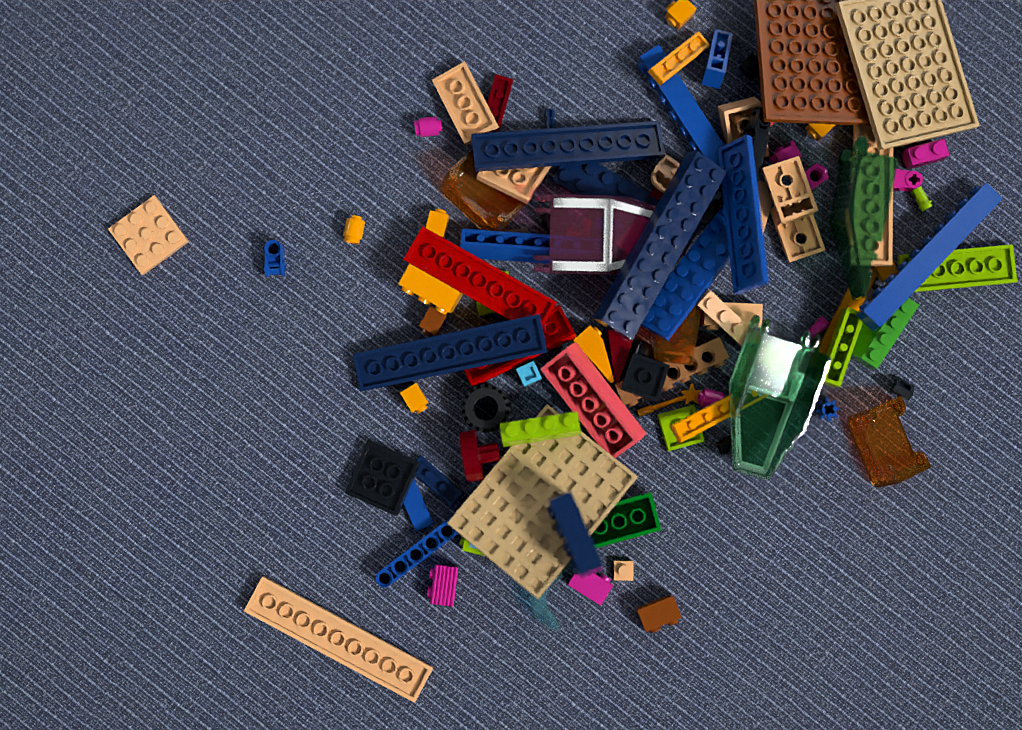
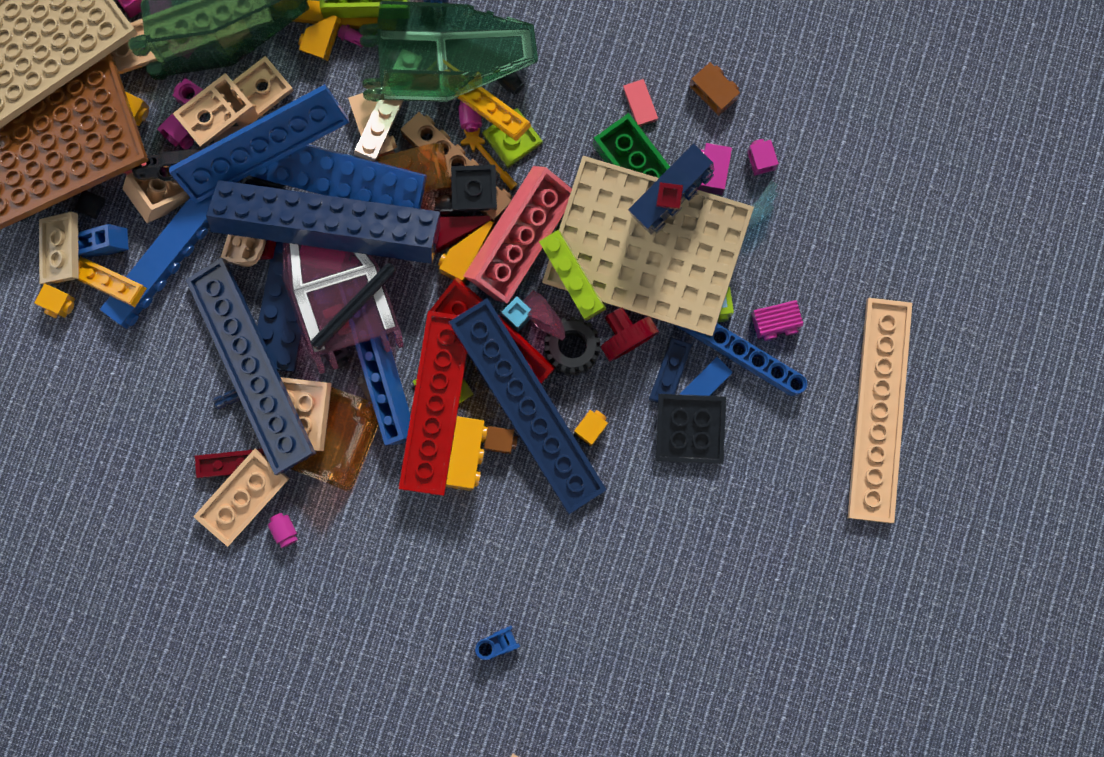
camera: 115 degrees left, 5 degrees down
(353, 229) = (430, 568): light orange brick -> none
(438, 222) = (387, 477): light orange brick -> none
(517, 394) = (544, 315): none -> clear pink slope
(566, 528) = (669, 196): none -> dark red plate
(579, 242) = (353, 306): none -> black axle
(585, 629) = (762, 157): none -> dark pink brick
(623, 570) = (683, 140): light nougat plate -> none
(670, 546) = (640, 103): none -> coral tile
(722, 29) = (58, 248): none -> tan plate
(823, 299) = (320, 38): none -> light orange slope

